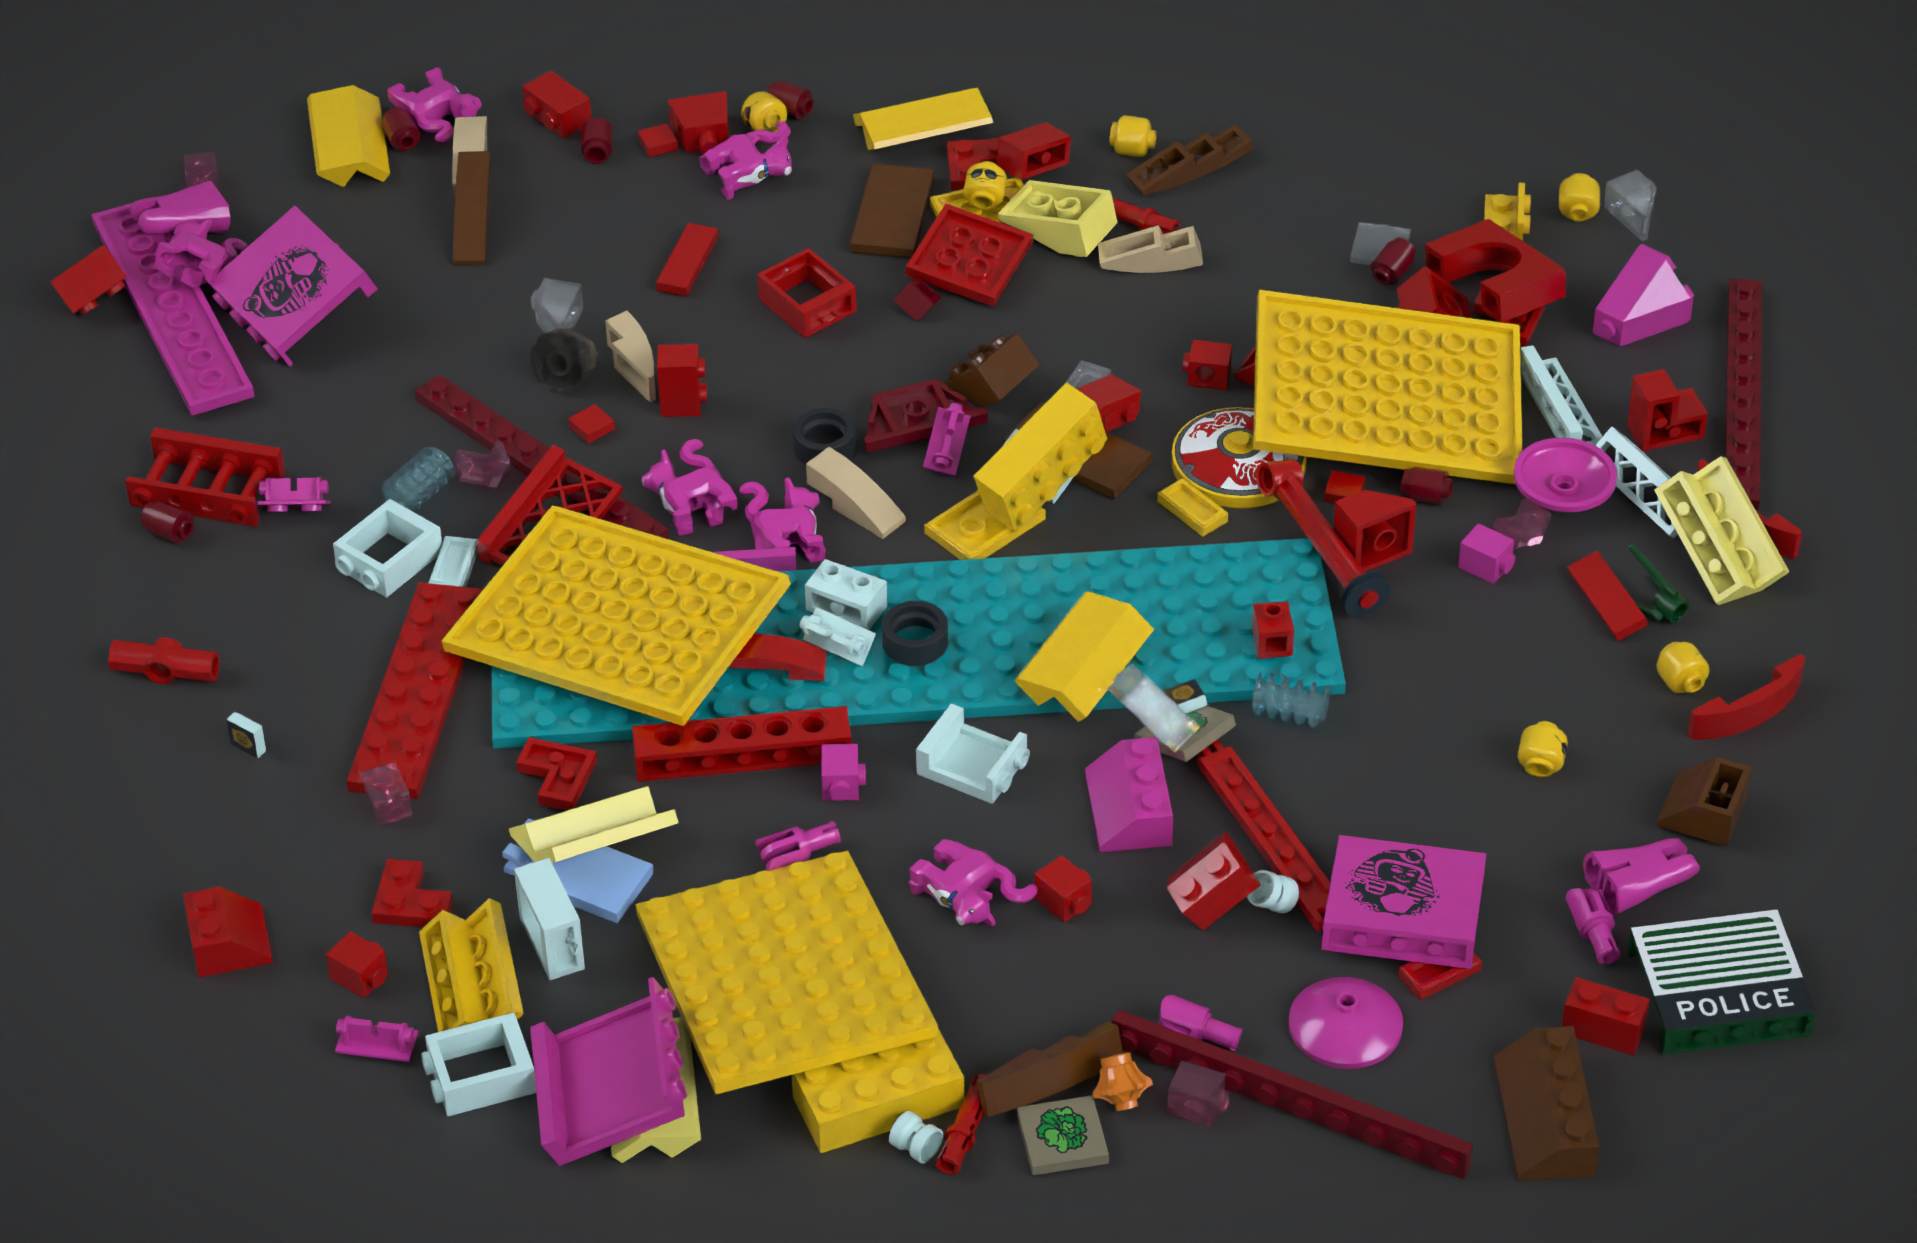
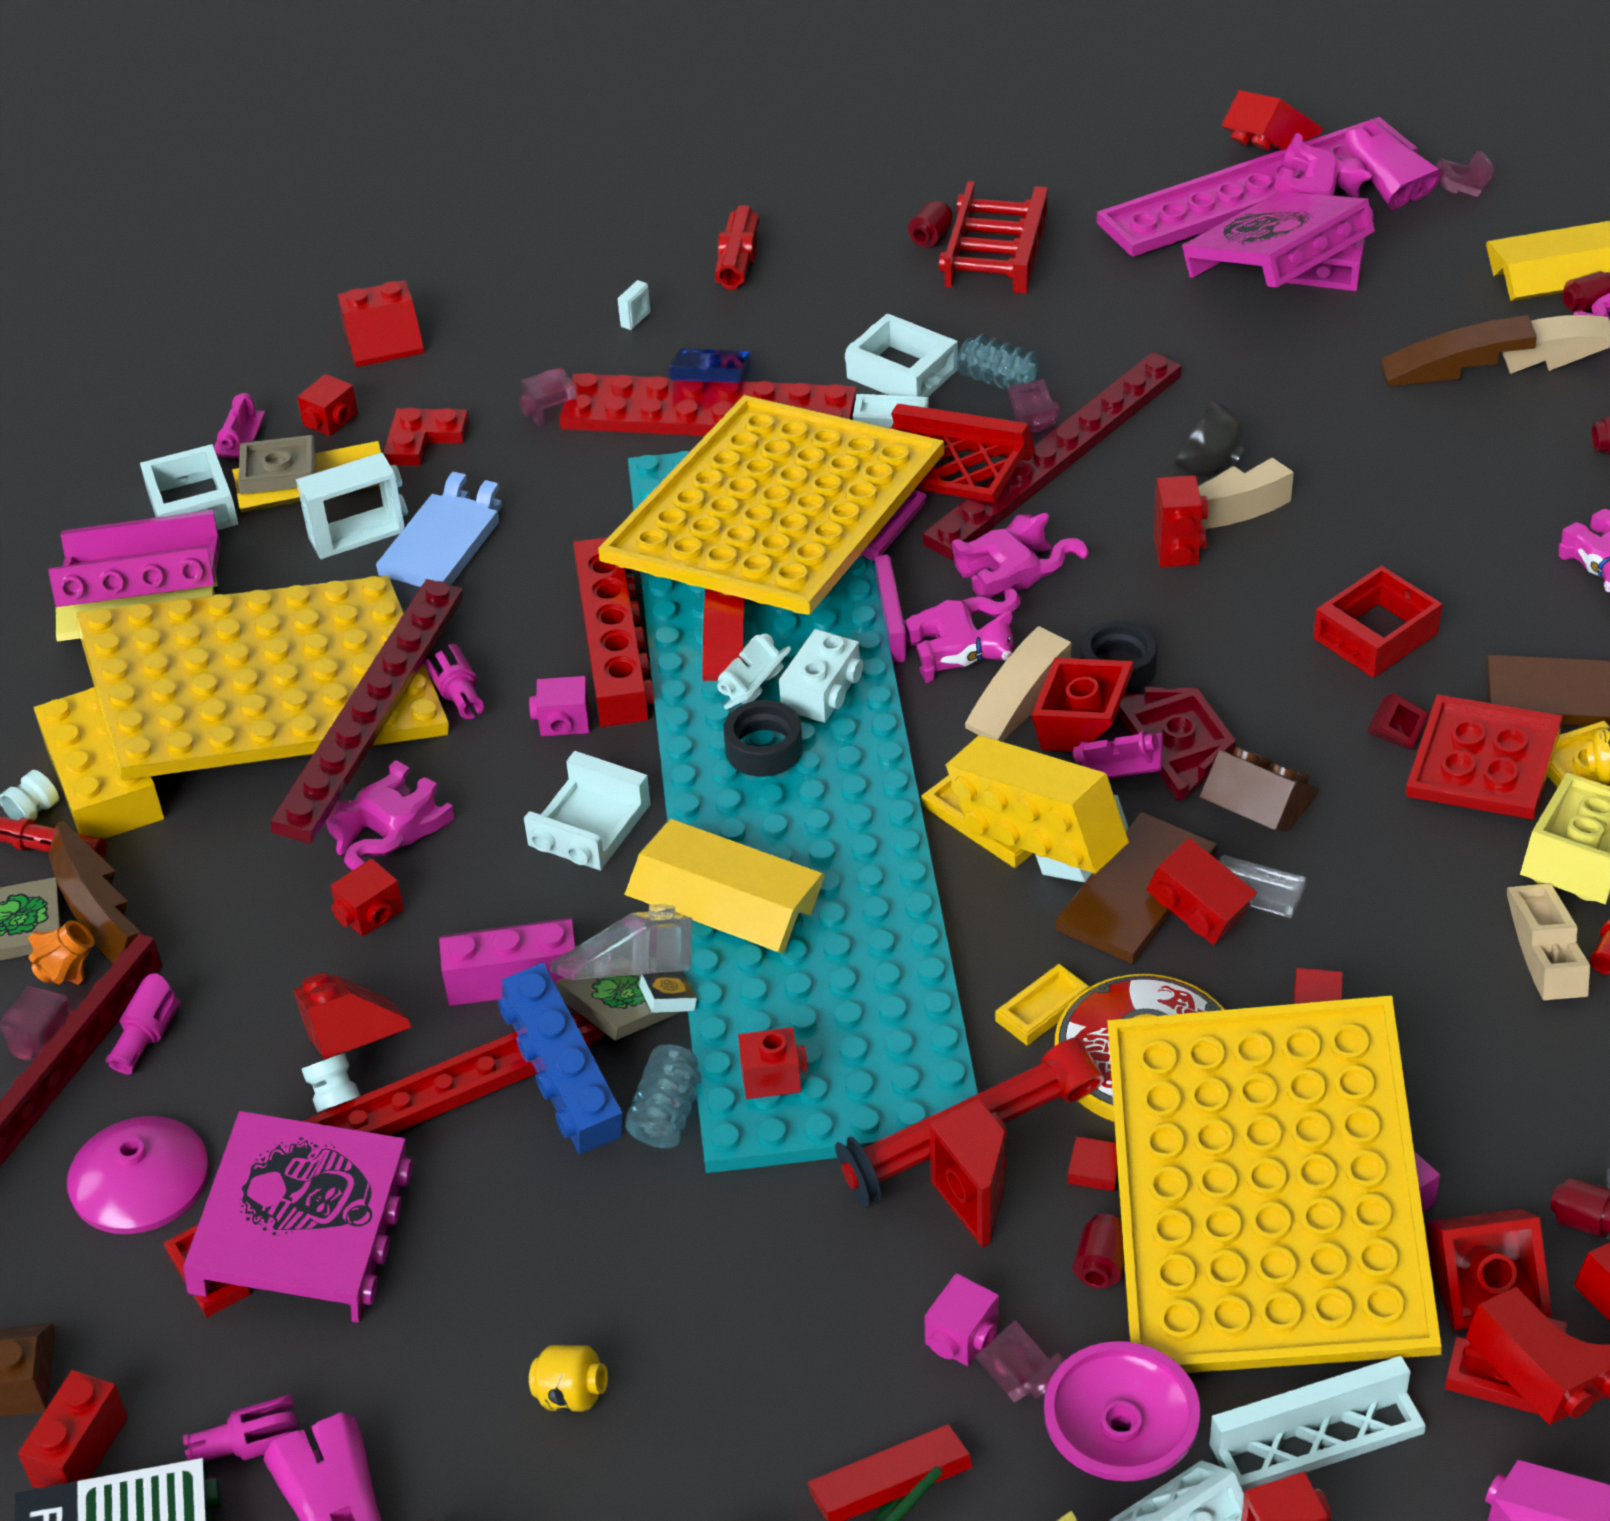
camera: 90 degrees right, 0 degrees up
(308, 494) = (972, 291): dark pink hinge -> none
(365, 677) = (709, 365): none -> clear blue plate
(477, 975) = (275, 463): none -> dark tan plate
(557, 304) = (1297, 433): clear slope -> none
(564, 768) = (581, 513): red plate -> none
(591, 423) = (1124, 482): red tile -> none
(591, 826) = (481, 527): light yellow slope -> none
(687, 259) = (1428, 528): red tile -> none
(847, 881) = (366, 713): none -> dark red plate
(897, 447) = (1079, 701): none -> red slope
(1262, 745) = (561, 1059): none -> blue brick

